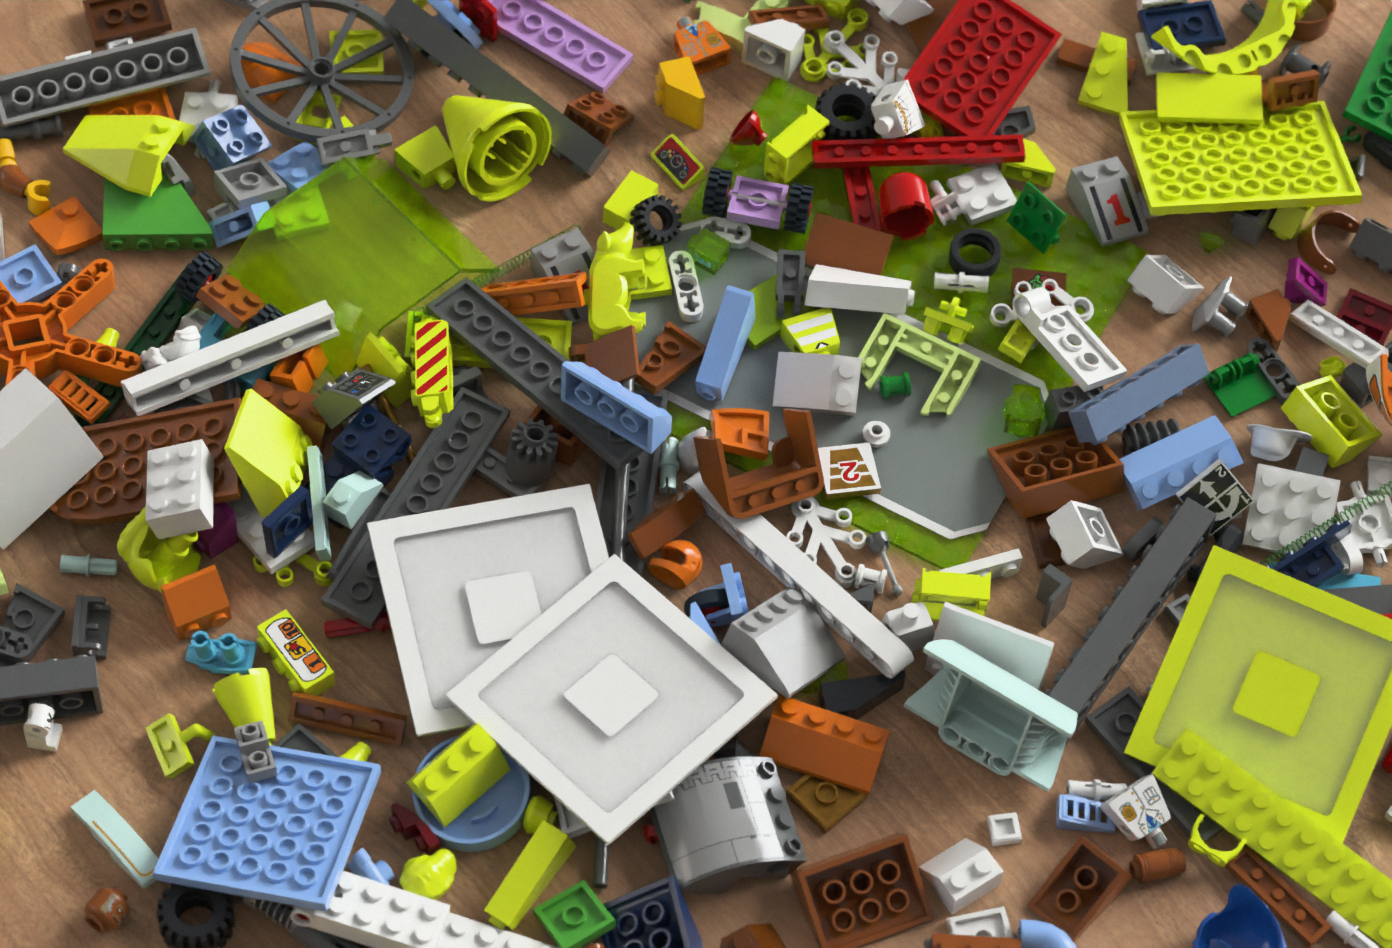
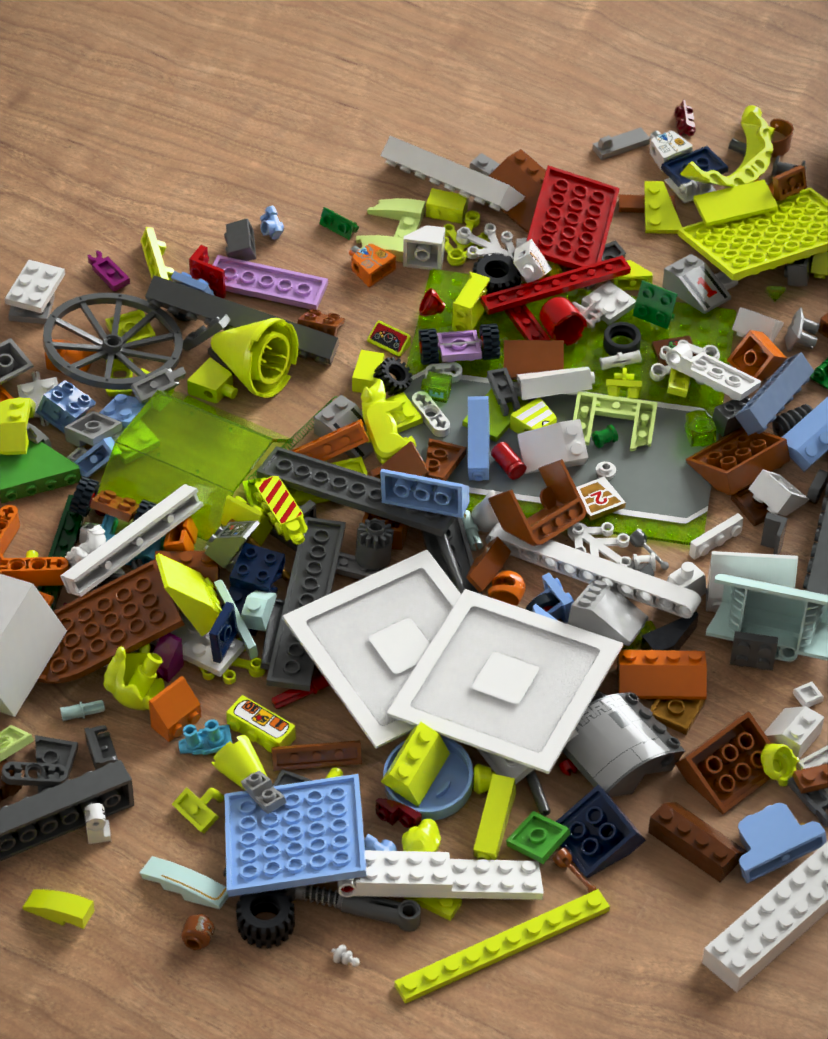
camera: 15 degrees left, 10 degrees down
(180, 489) = (139, 628): white brick -> none
(439, 89) = (203, 333): none -> dark grey hinge
(680, 92) = (374, 292): yellow slope -> none
(742, 431) = (520, 487): orange plate -> none
(755, 383) = (508, 460): none -> red piece
(805, 16) = (441, 221): dark orange tile -> none
(918, 915) = (779, 762): none -> neon yellow hair
(954, 749) = (753, 650): none -> dark grey plate
(959, 589) = (700, 549): neon yellow window -> none
(1141, 331) = (757, 356): none -> orange slope

